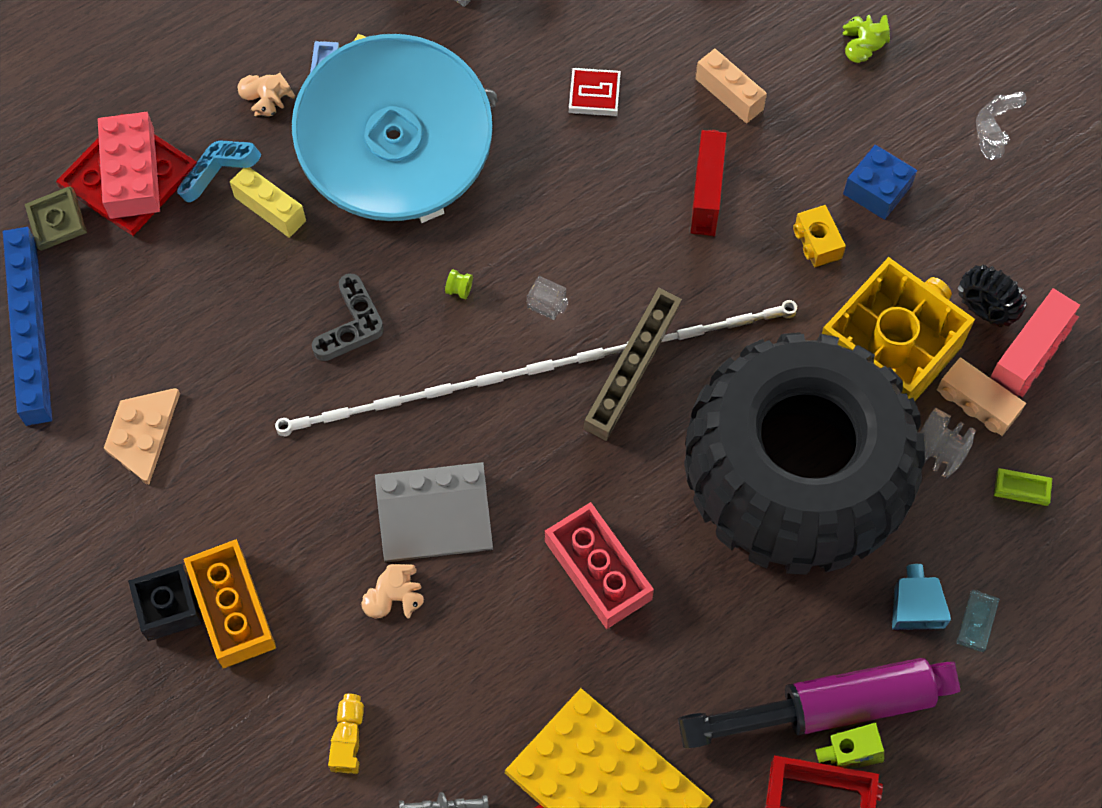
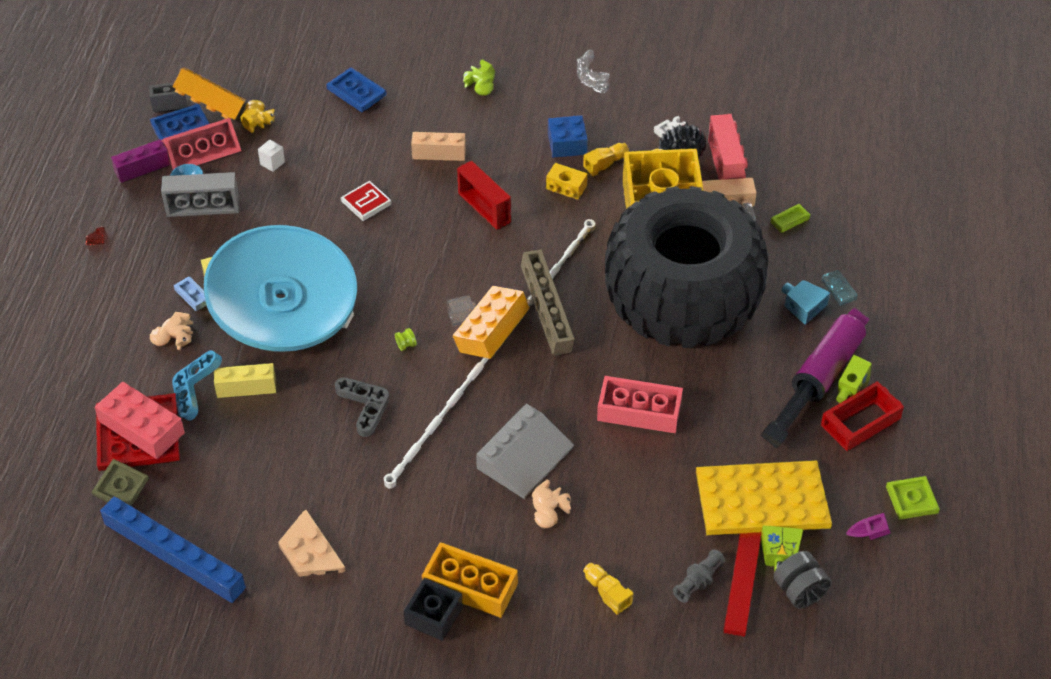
camera: 45 degrees left, 15 degrees down
(556, 338) = (491, 322): none -> light orange brick
(892, 240) = (603, 157): none -> yellow piece
(1008, 262) = (661, 128): none -> white plate

